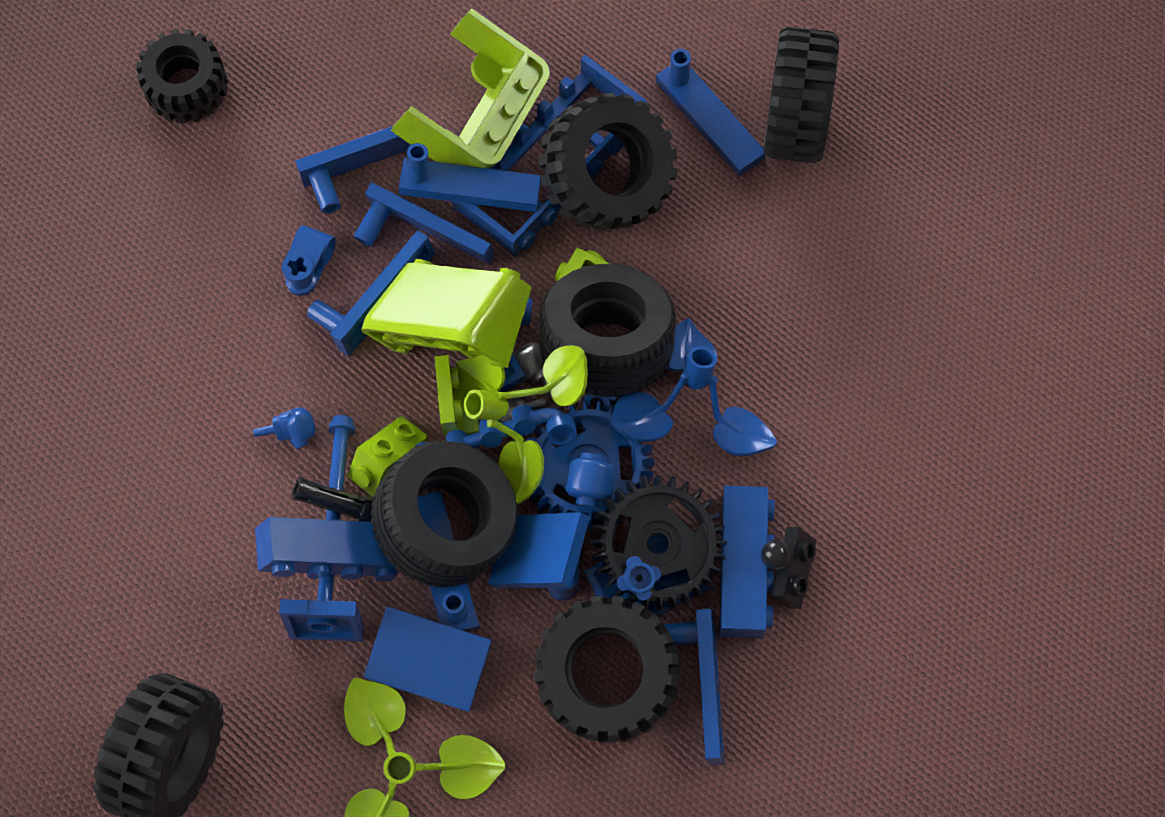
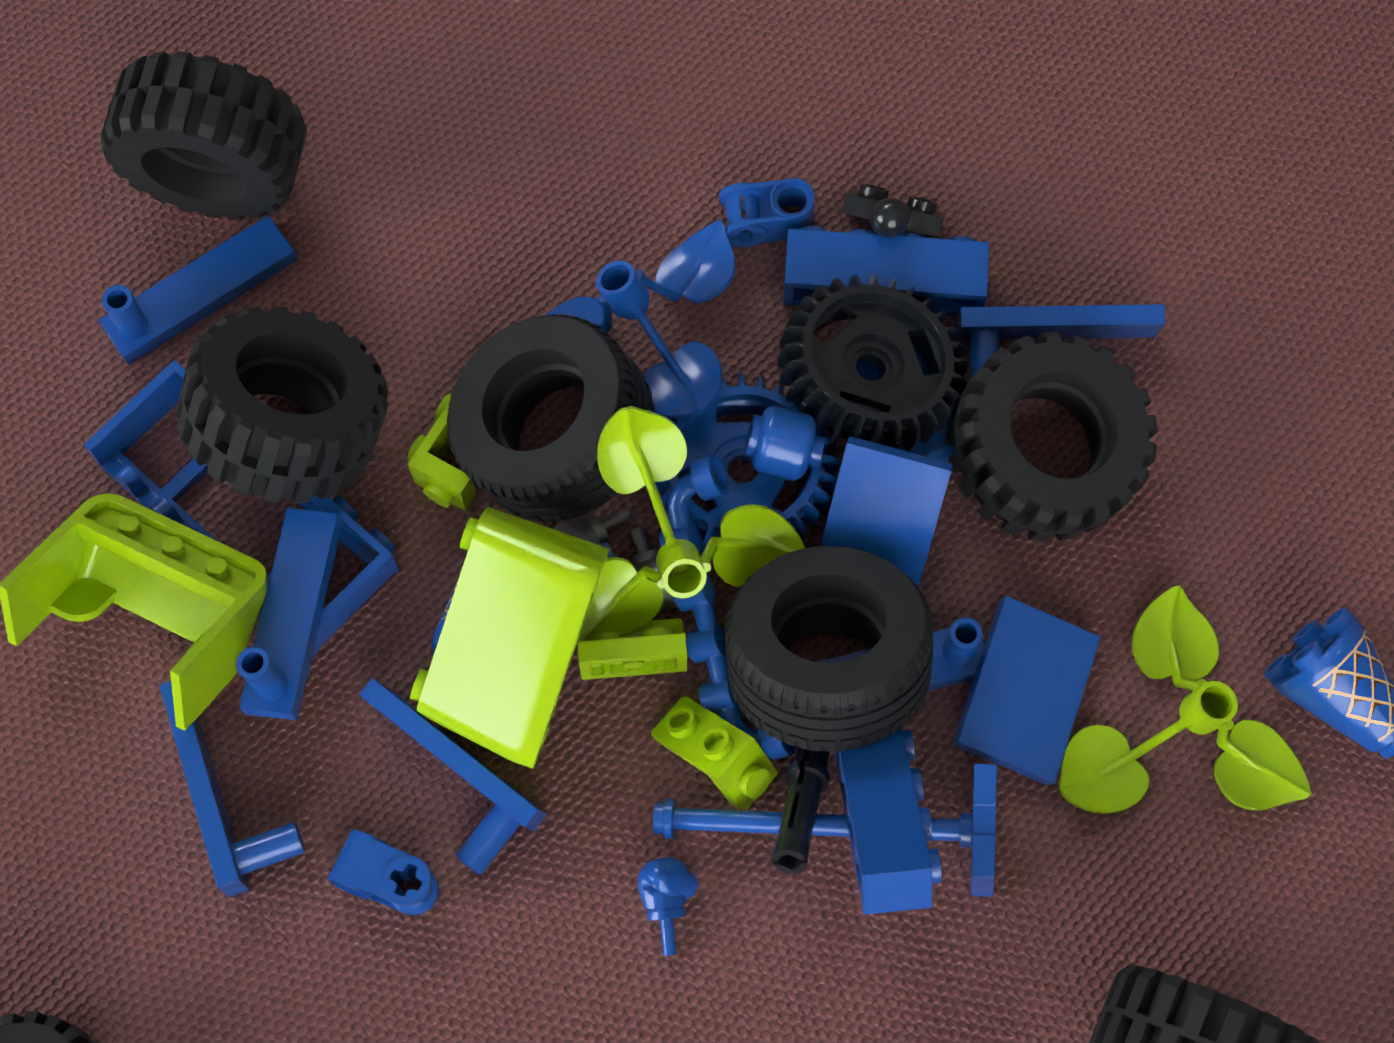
camera: 90 degrees left, 0 degrees up
(388, 203) = (300, 751): blue piece -> none
(649, 576) = (940, 367): blue plate -> none
(788, 473) = (763, 210): none -> blue piece

